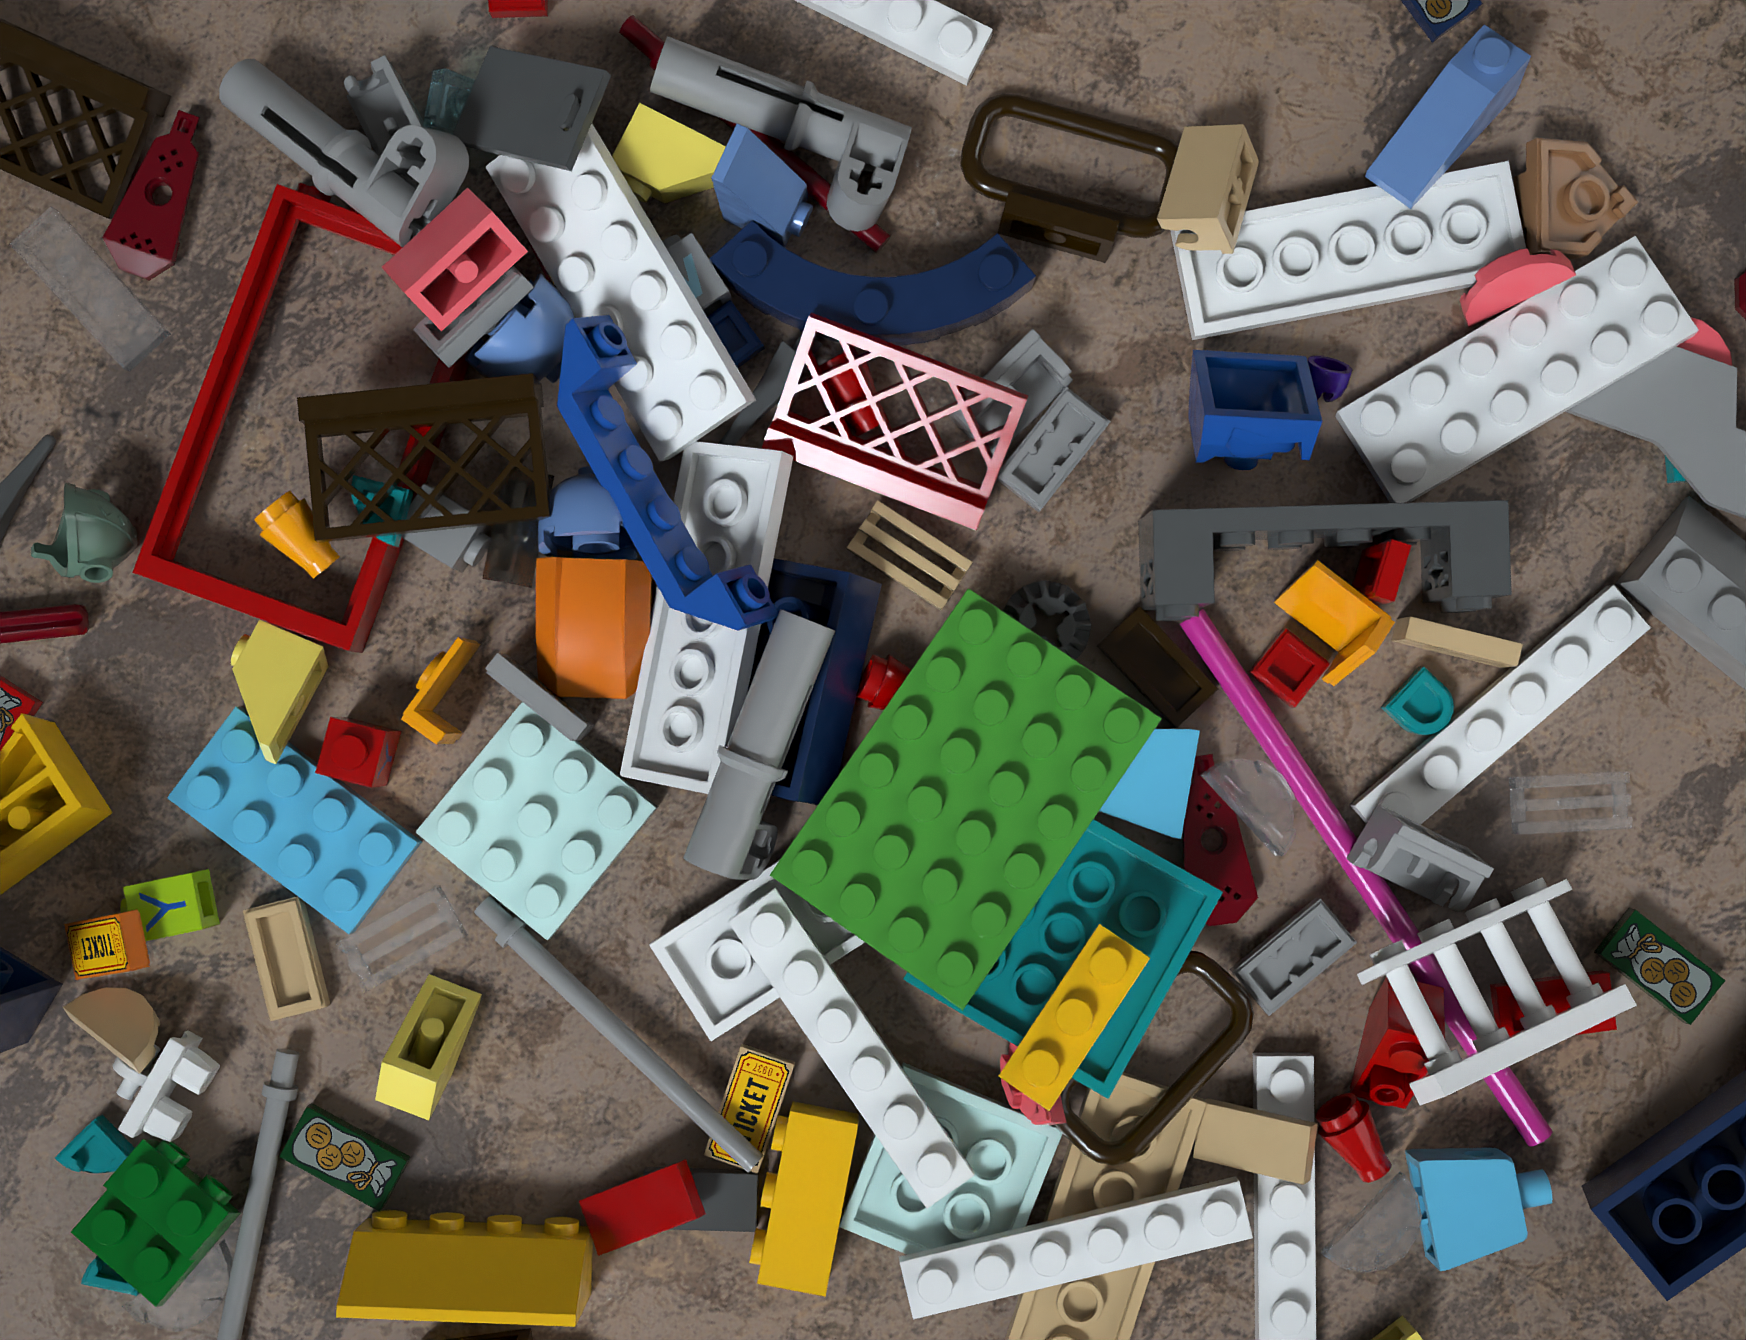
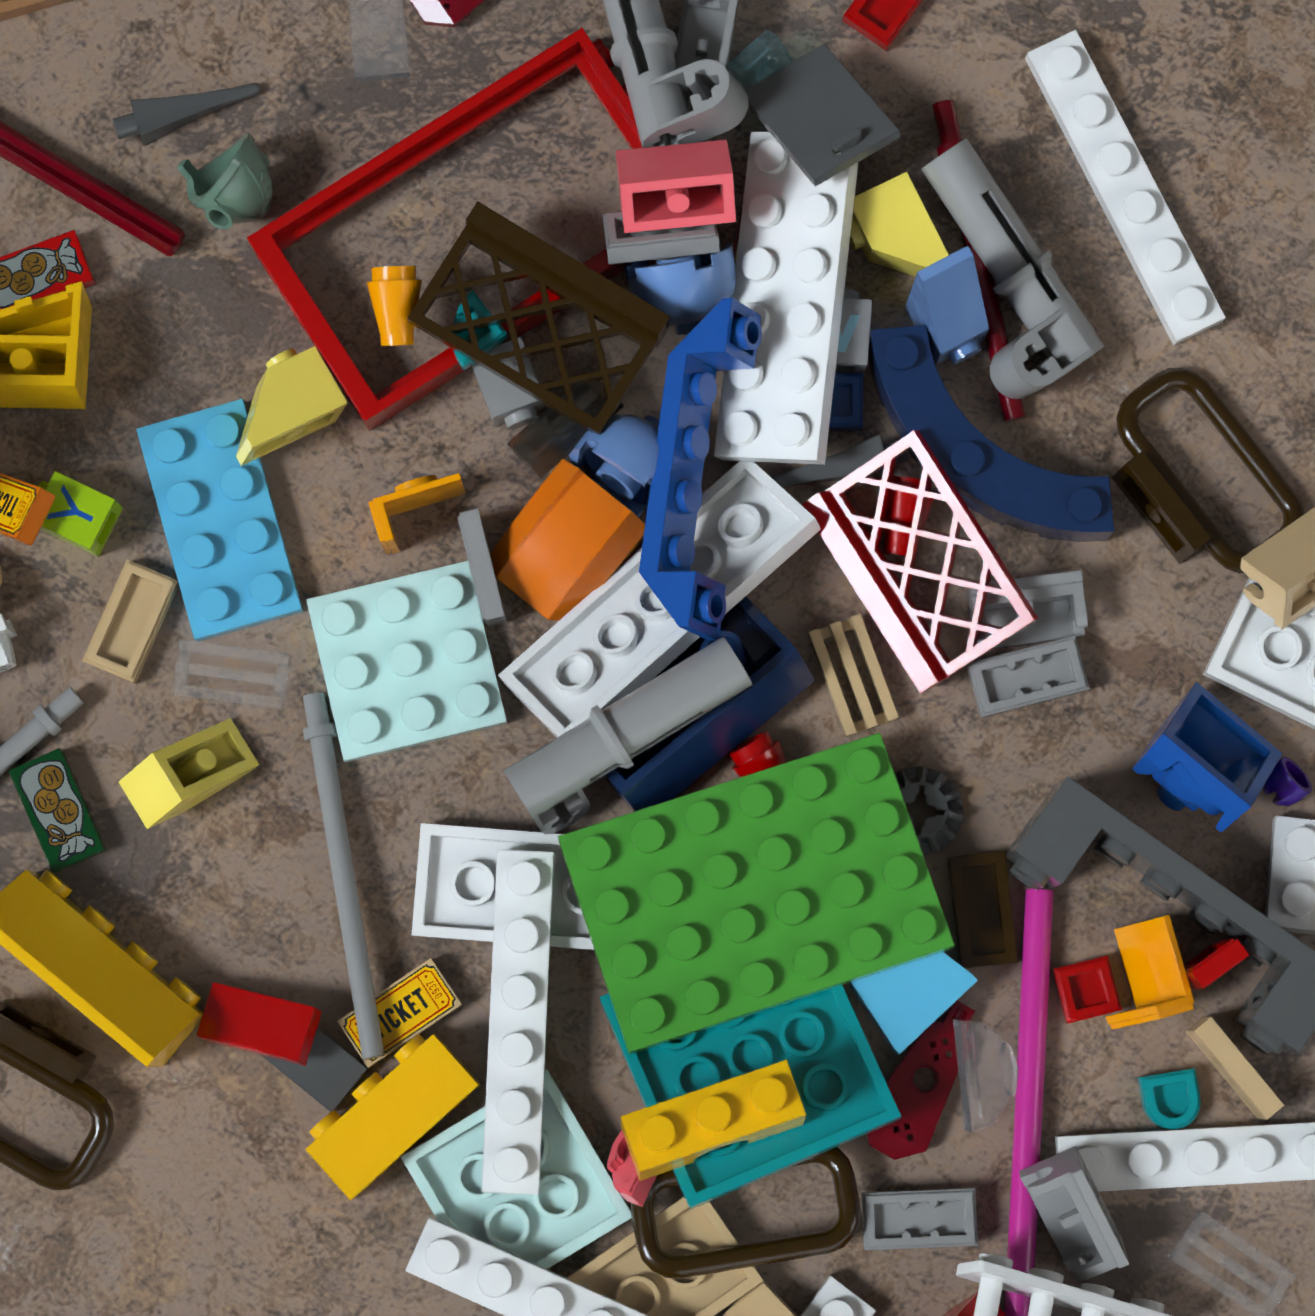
camera: 35 degrees right, 5 degrees down
(358, 752) = (311, 504): red brick -> none

